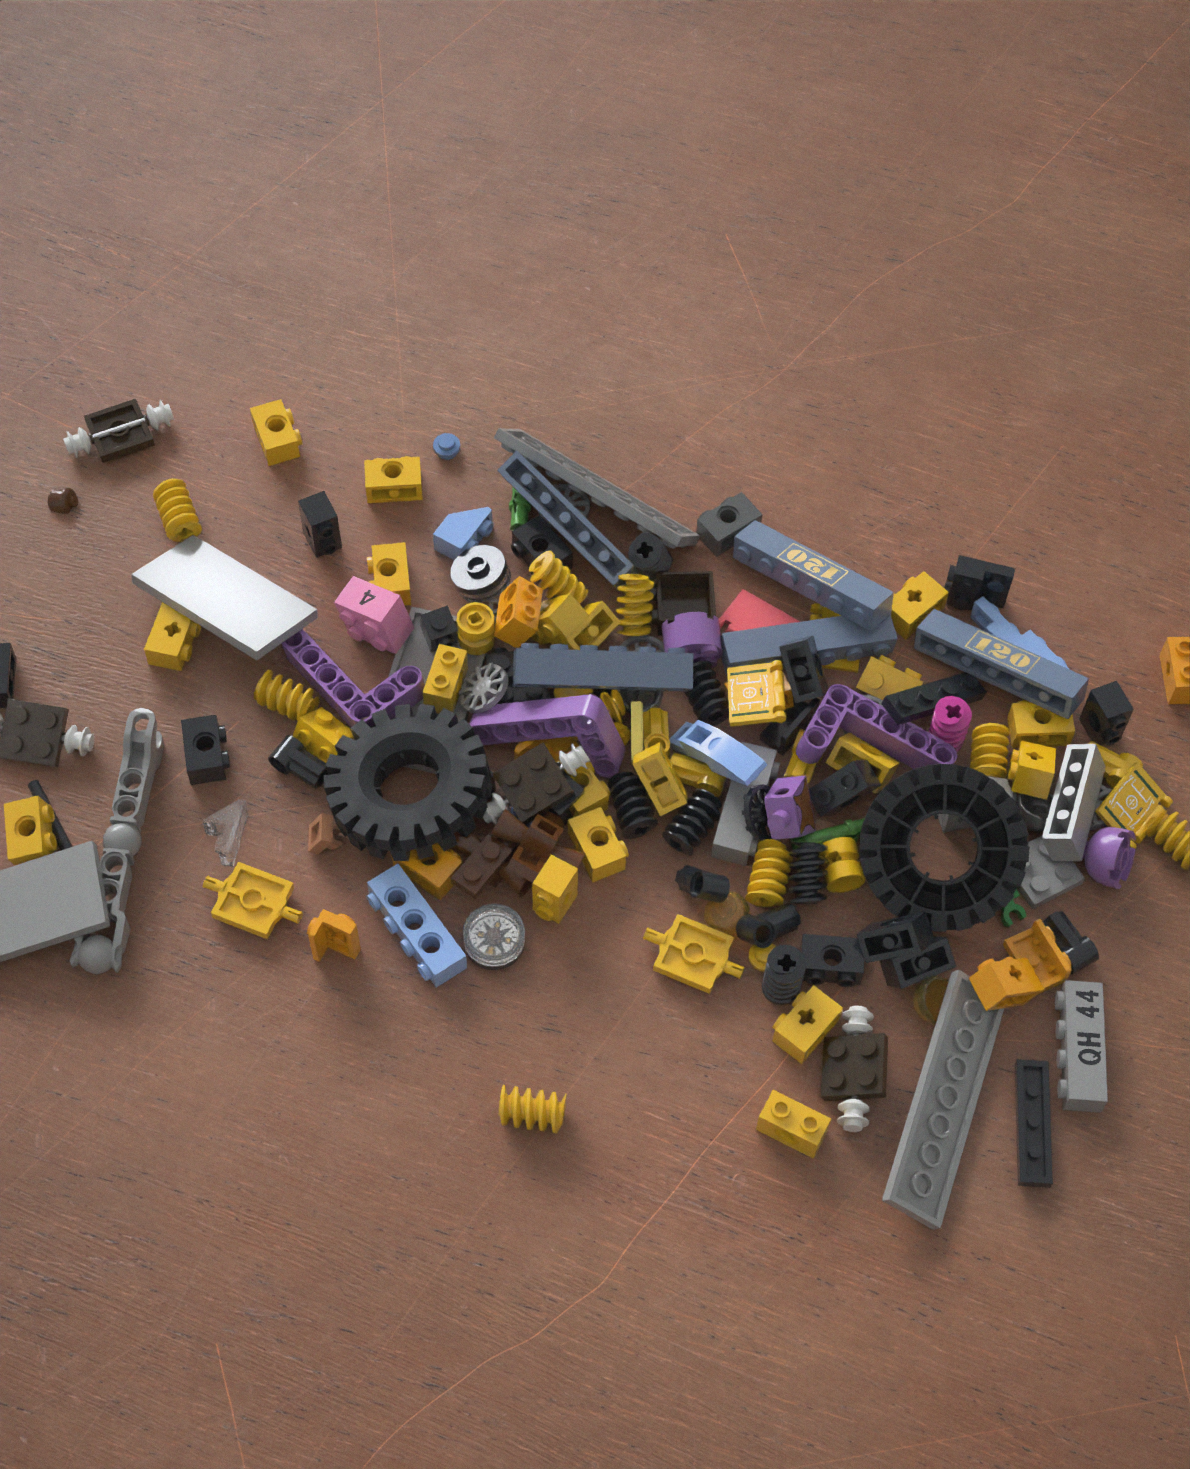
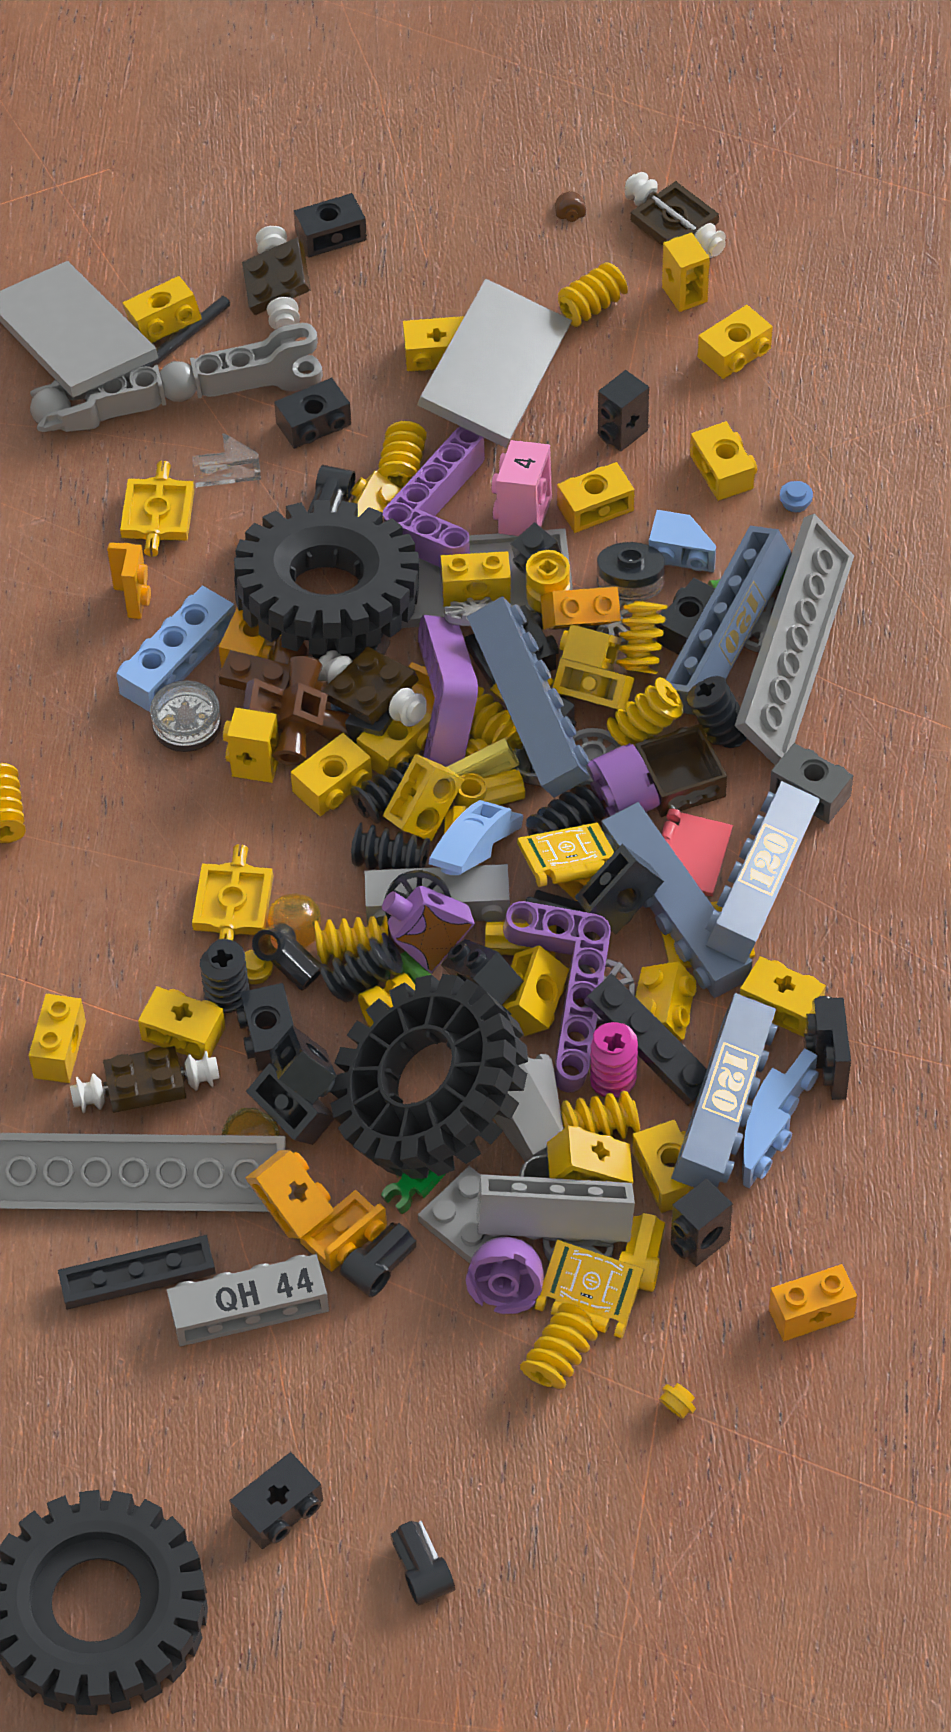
camera: 75 degrees right, 5 degrees down
(193, 437) = (685, 272): none -> yellow brick
(703, 884) = (310, 873): black piece -> none

